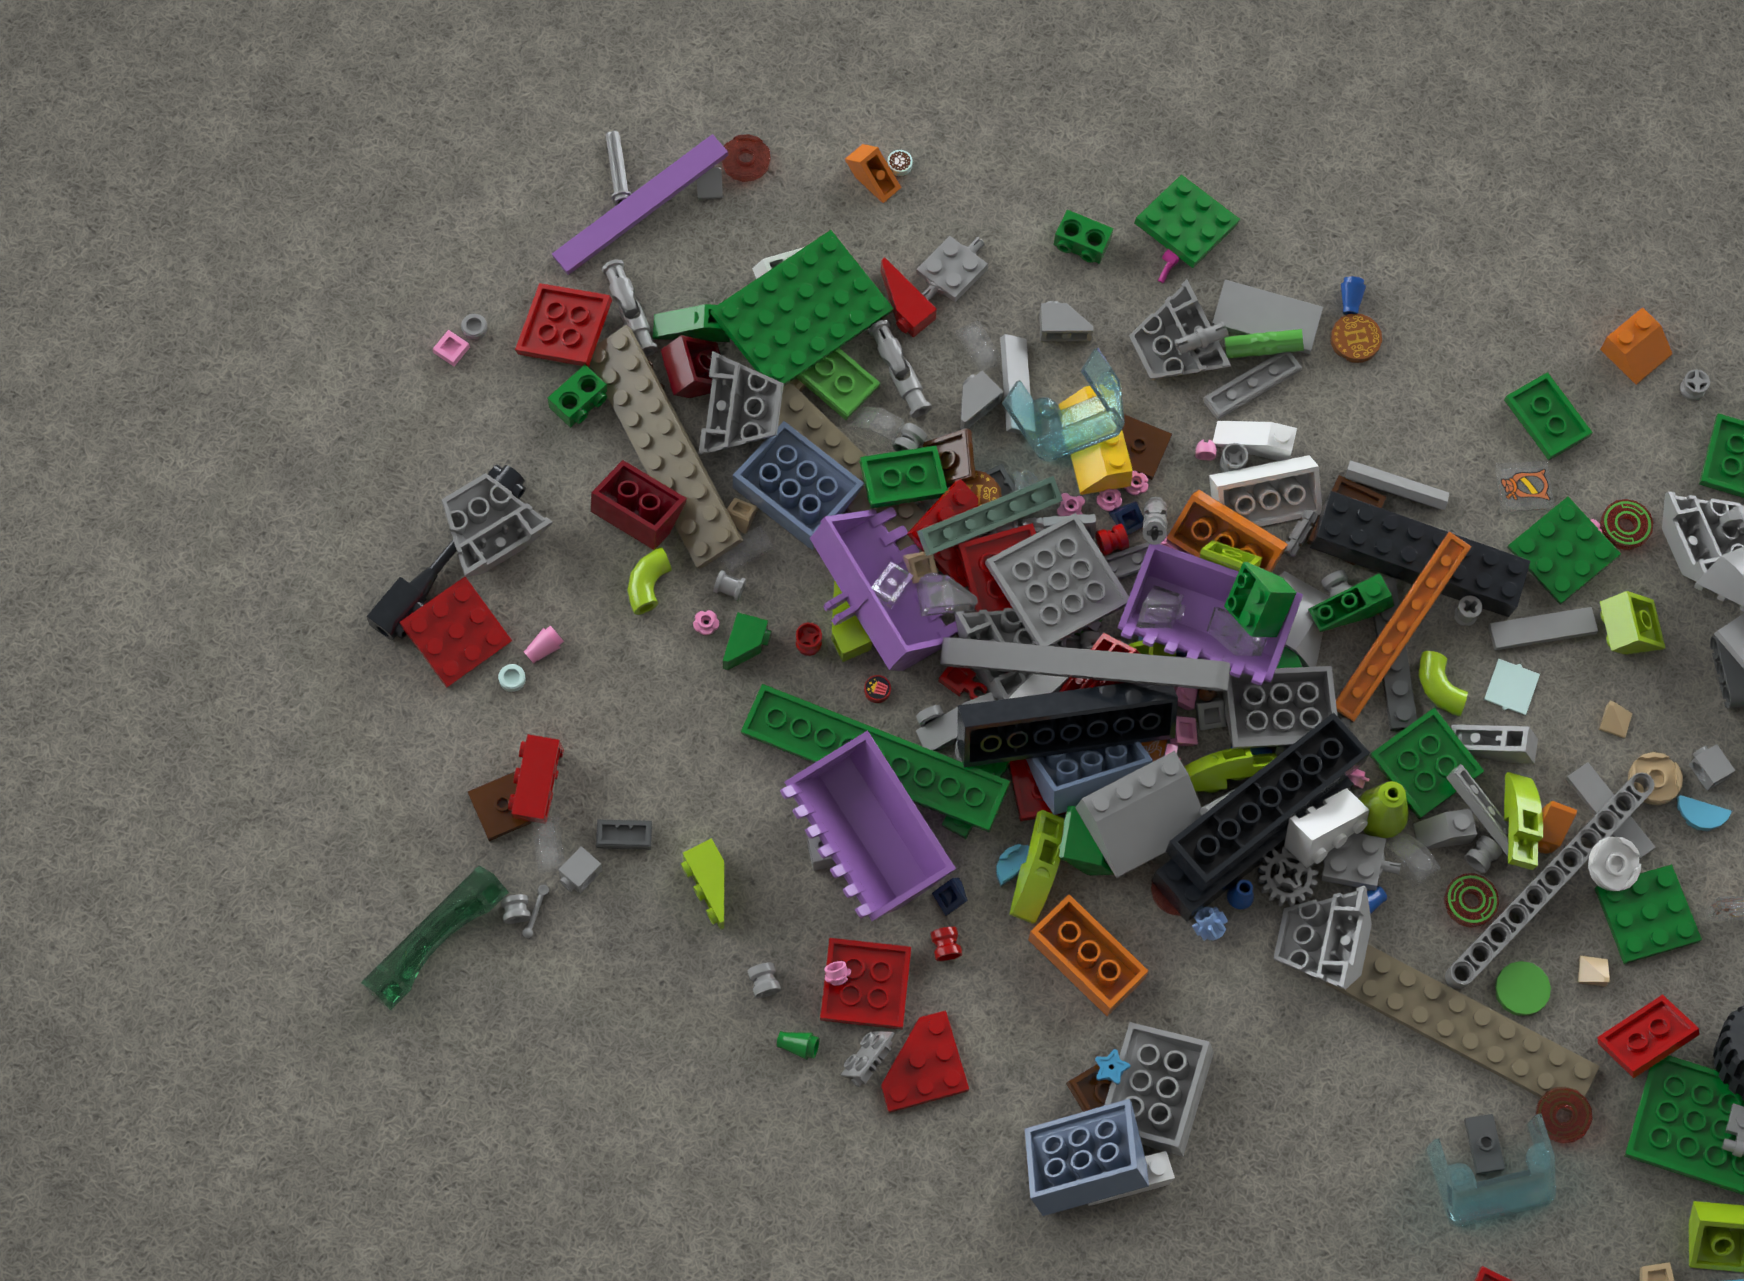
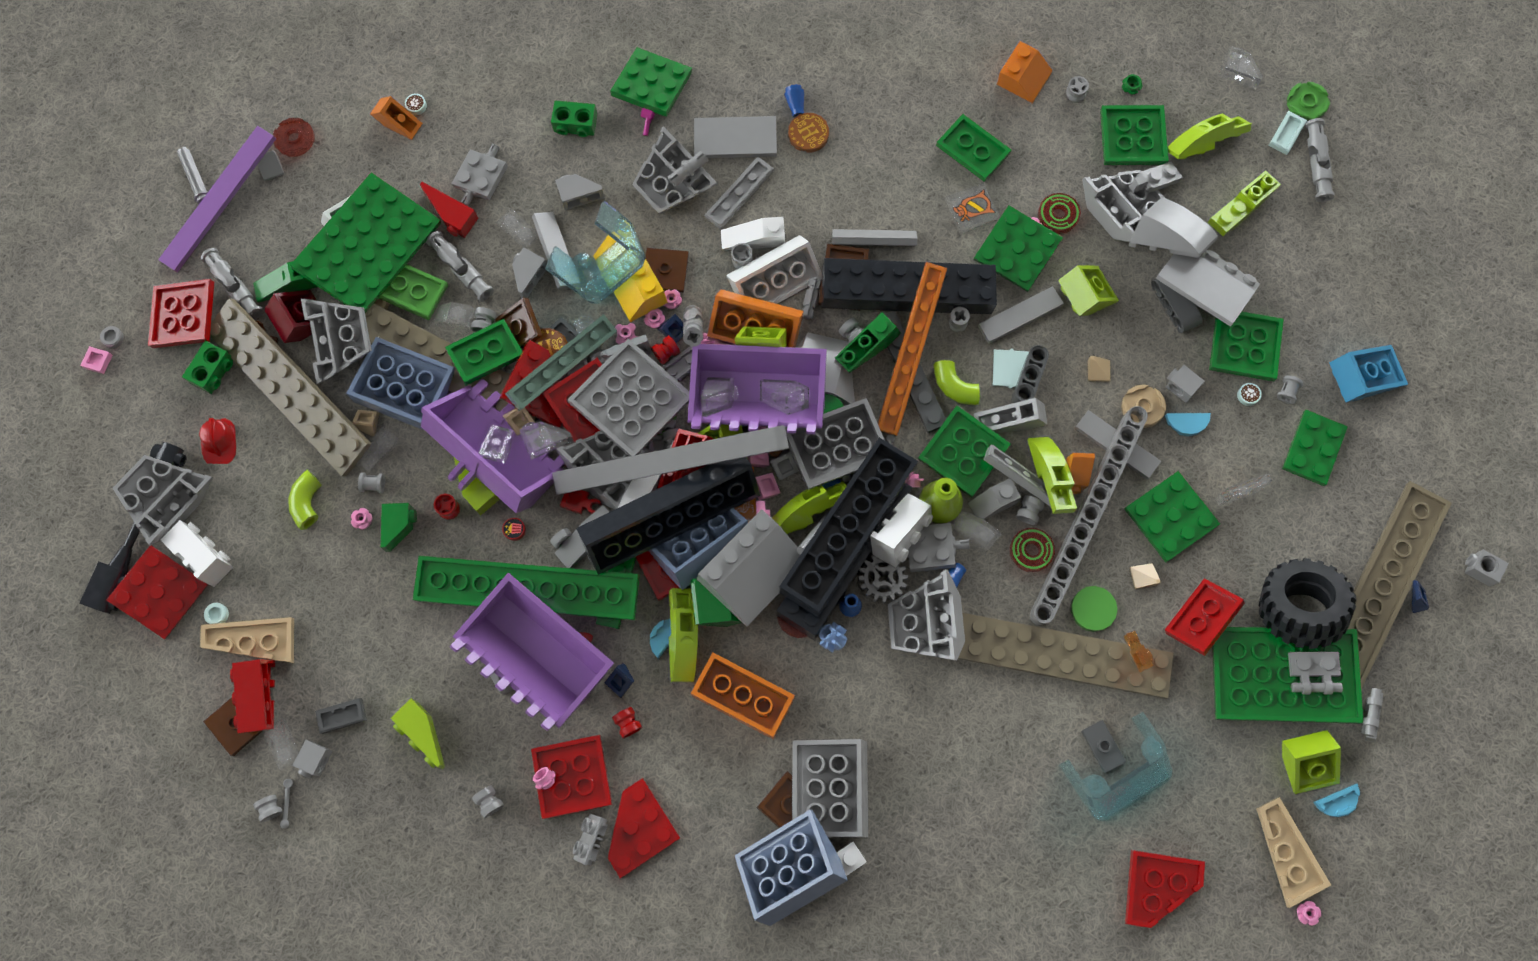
camera: 10 degrees left, 5 degrees up
(398, 971) = (184, 891): clear green arch -> none
(511, 601) = (197, 553): none -> white wedge
(544, 644) = (234, 578): bright pink cone -> none
(546, 716) = (257, 638): none -> tan wing
(565, 484) = (218, 441): none -> red piece
(637, 504) = (277, 440): dark red slope -> none
(799, 1043) = (532, 845): green cone -> none
(1114, 1074) = (782, 782): dark azure plate -> none
(1206, 450) = (718, 256): bright pink hinge -> none
(1259, 601) = (793, 365): green slope -> none
(1264, 343) = (738, 158): bright green axle -> none
(1538, 693) = (1034, 368): none -> dark grey beam
(1559, 1053) = (1140, 655): none -> clear orange plate
(1565, 1098) = (1159, 689): clear red tile -> none
(1614, 863) = (1135, 486): white tile -> none

